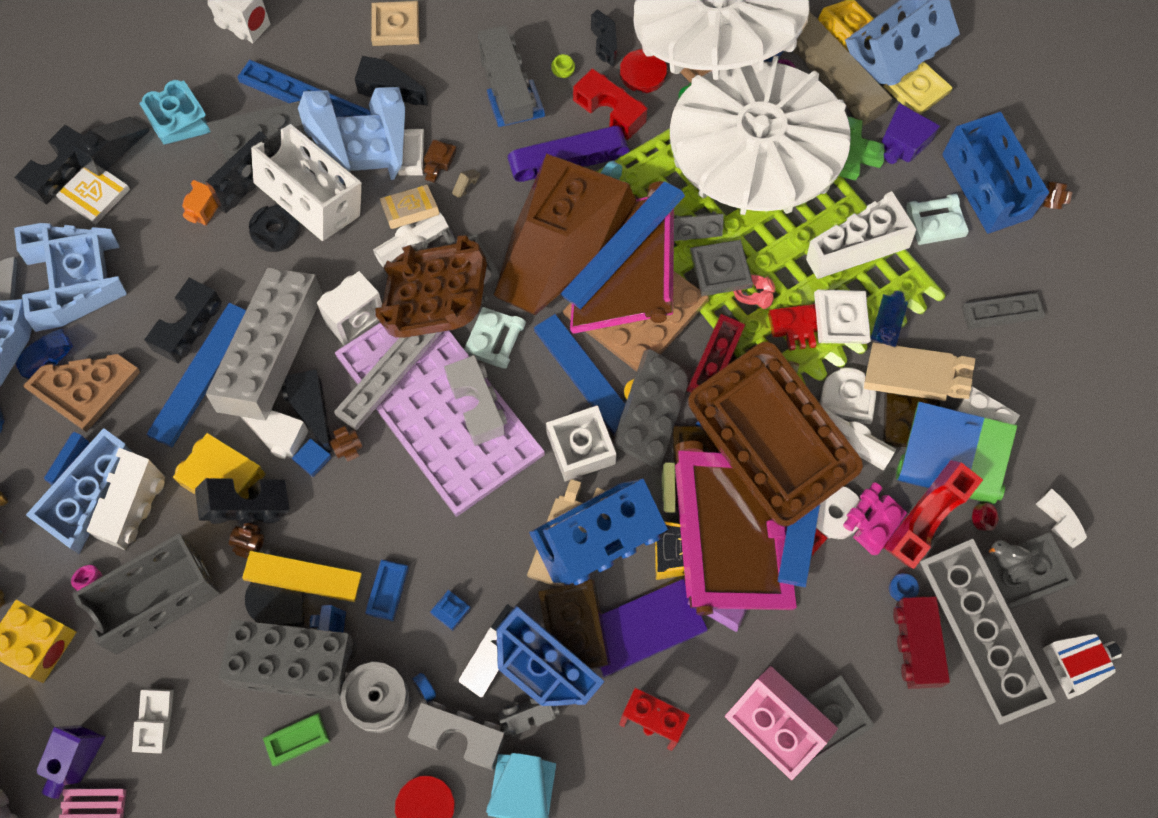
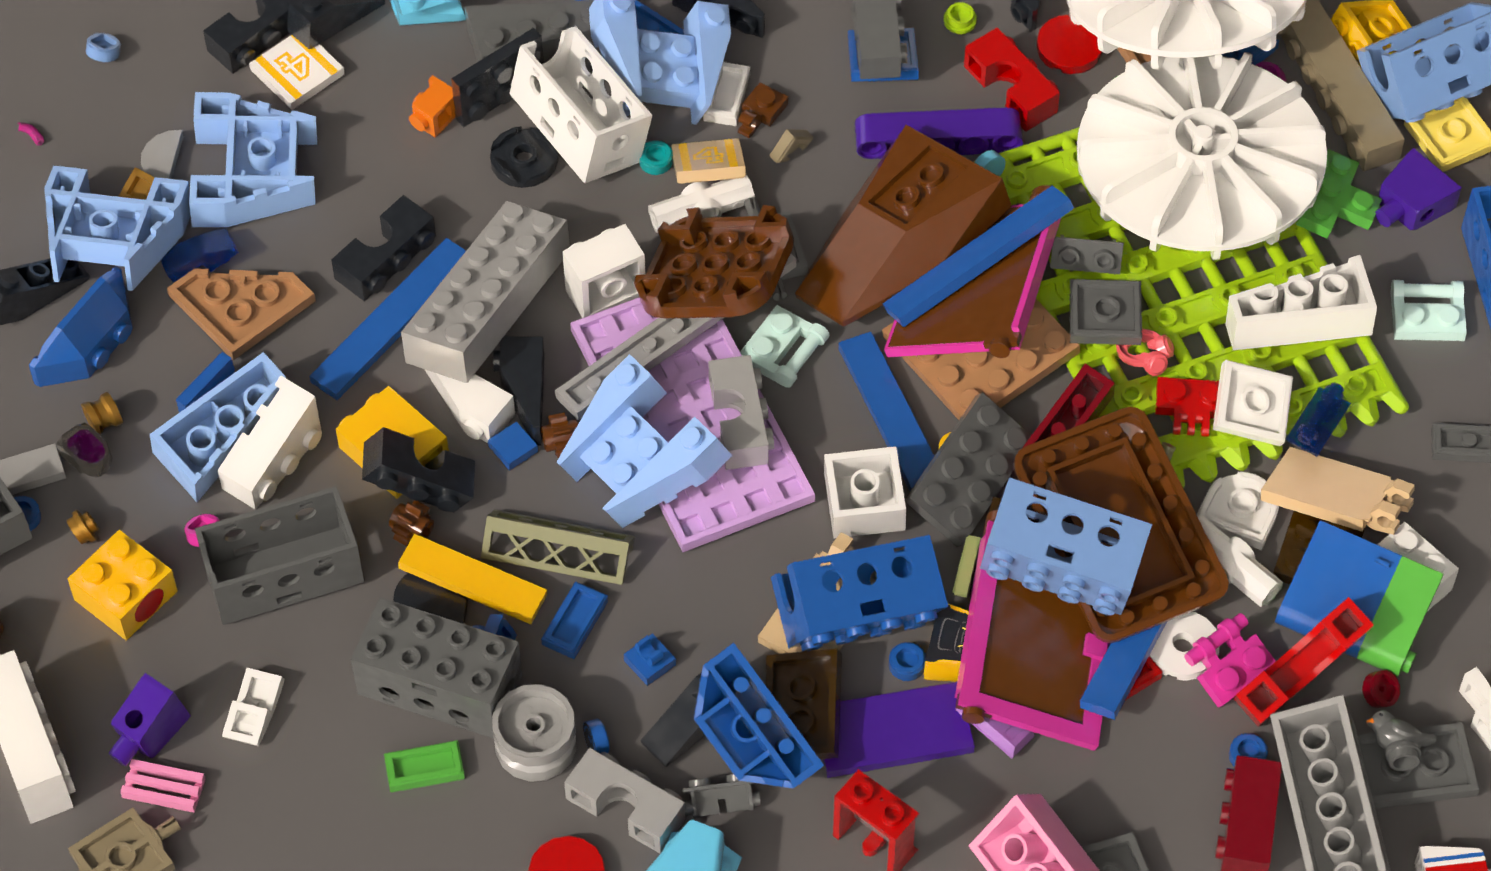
camera: 15 degrees right, 10 degrees down
(361, 523) = (559, 533): none -> fence
(371, 210) = (656, 157): none -> teal tile
(402, 450) = (631, 453): none -> light blue wedge
(641, 569) = (907, 661): none -> blue tile
(759, 478) = (1093, 573): none -> medium blue piece

